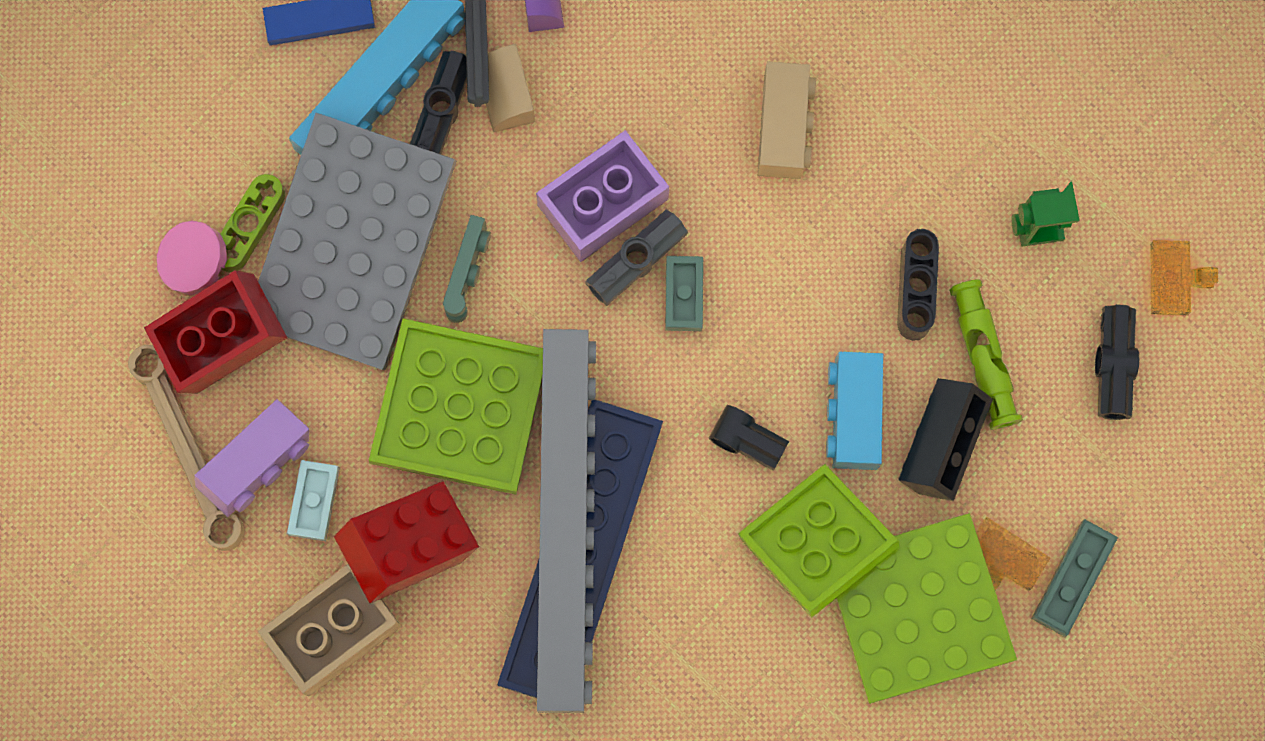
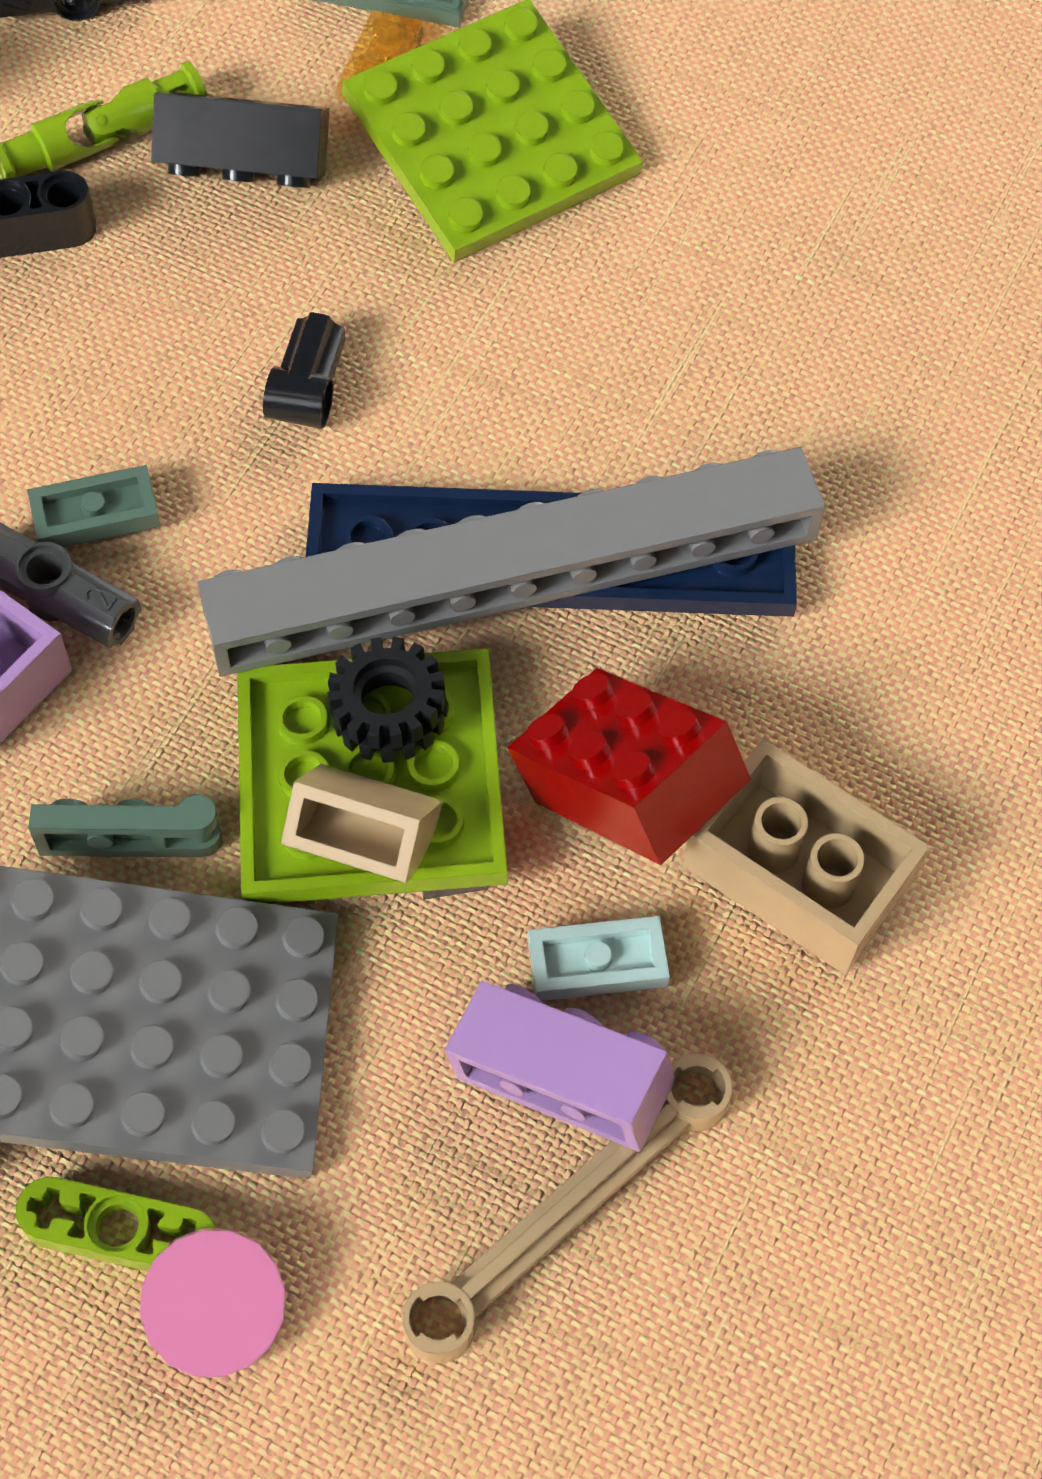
camera: 105 degrees left, 15 degrees down
(215, 332) = (354, 1189): red brick -> none
(417, 387) = (360, 822): none -> tan brick
(482, 400) = (385, 668): none -> black tyre
(818, 540) = (436, 248): lime plate -> none
(856, 411) = (225, 250): medium azure brick -> none

